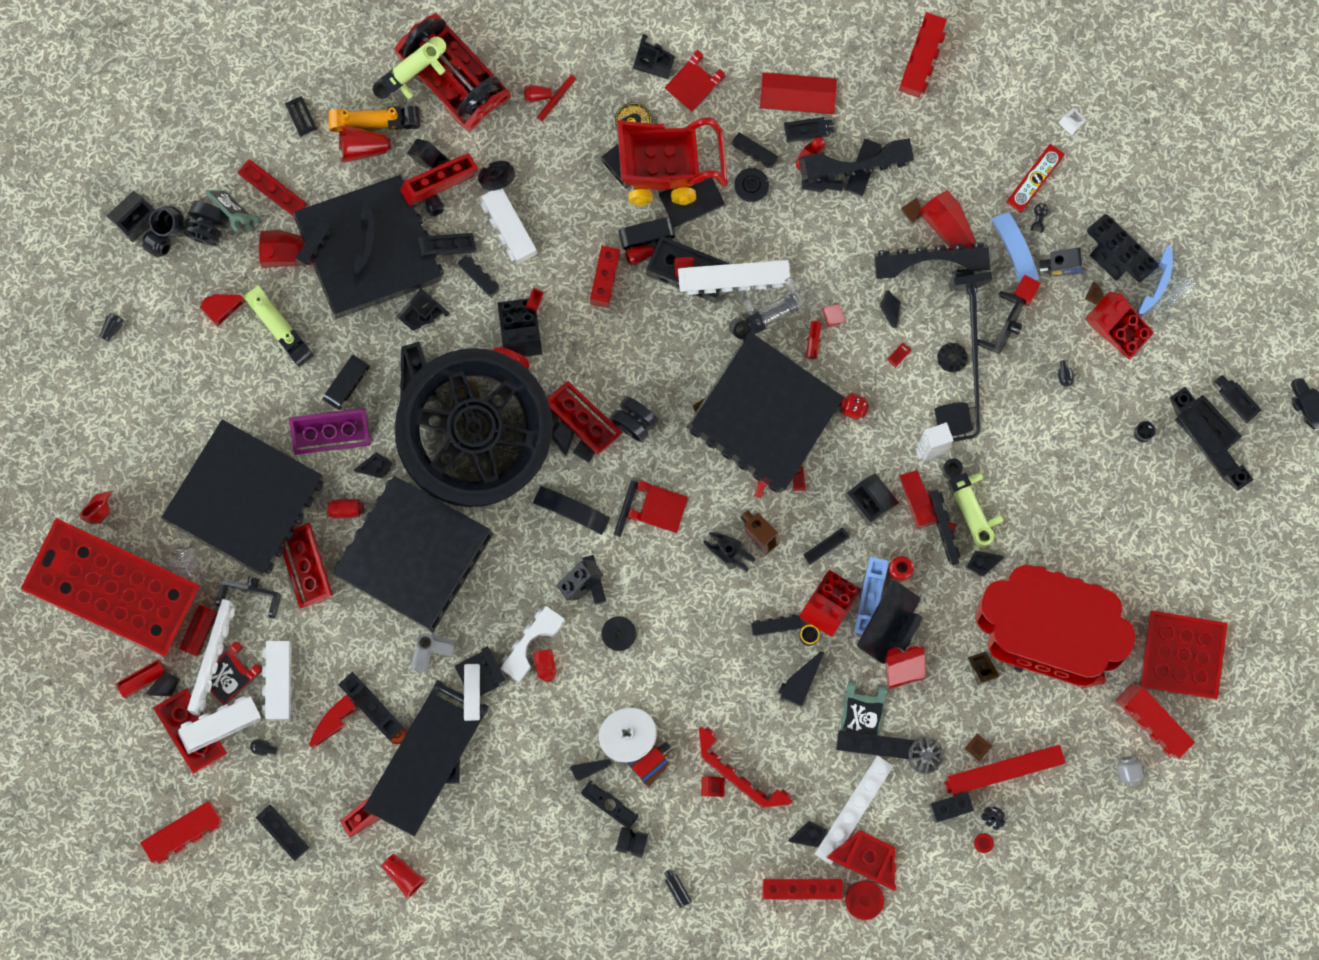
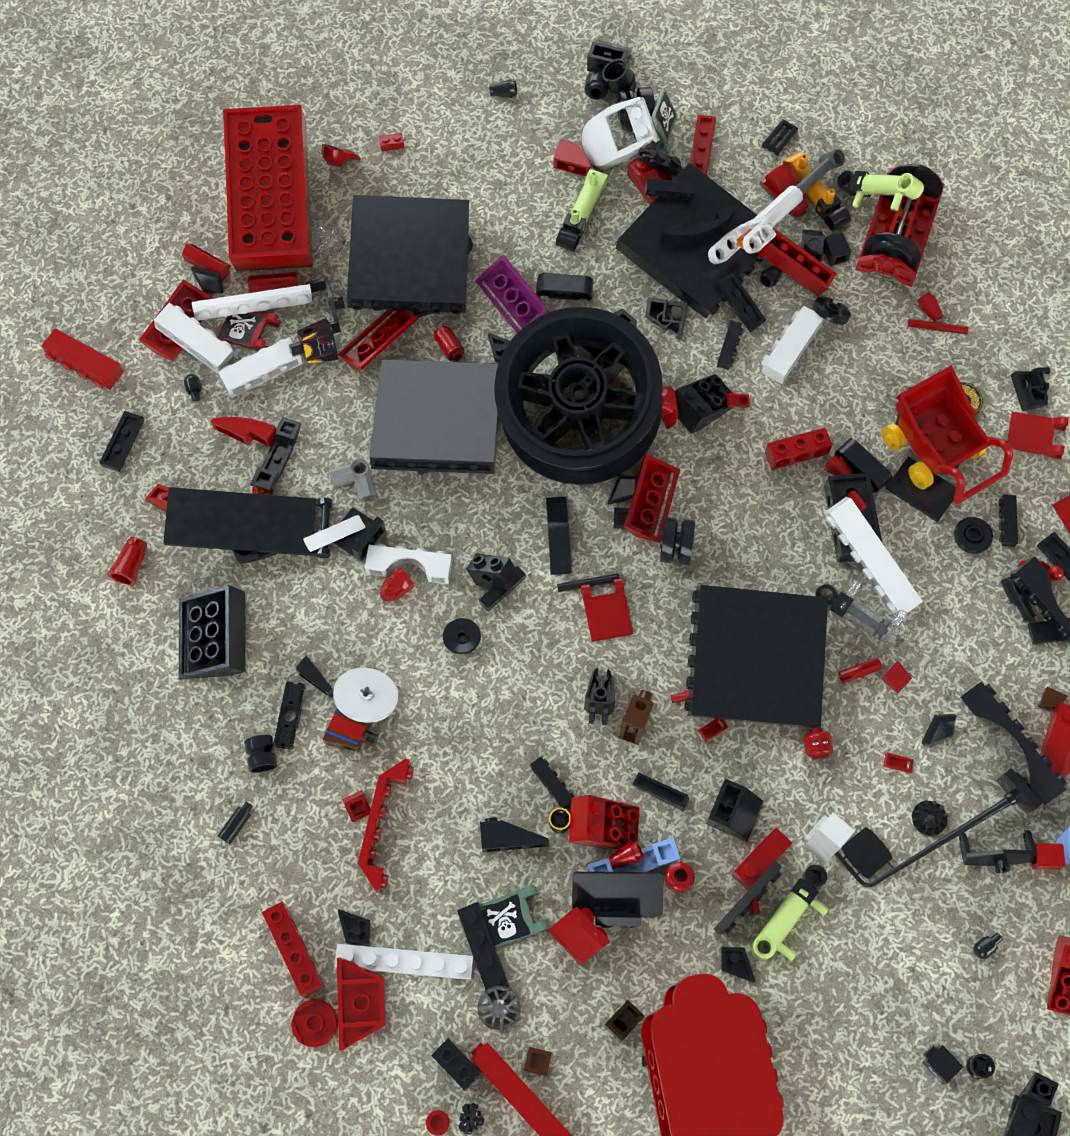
camera: 65 degrees right, 10 degrees down
(108, 455) = (391, 142): none -> red piece
(222, 274) = (599, 140): none -> white slope
(273, 232) = (660, 161): none -> black hinge
(286, 621) = (316, 343): none -> black torso
(399, 199) = (760, 228): none -> white piece
(440, 136) = (836, 249): none -> black brick
(505, 835) = (212, 633): none -> black slope
(864, 598) = (627, 855): none -> red cone
(1128, 457) = (941, 1063): none -> black brick

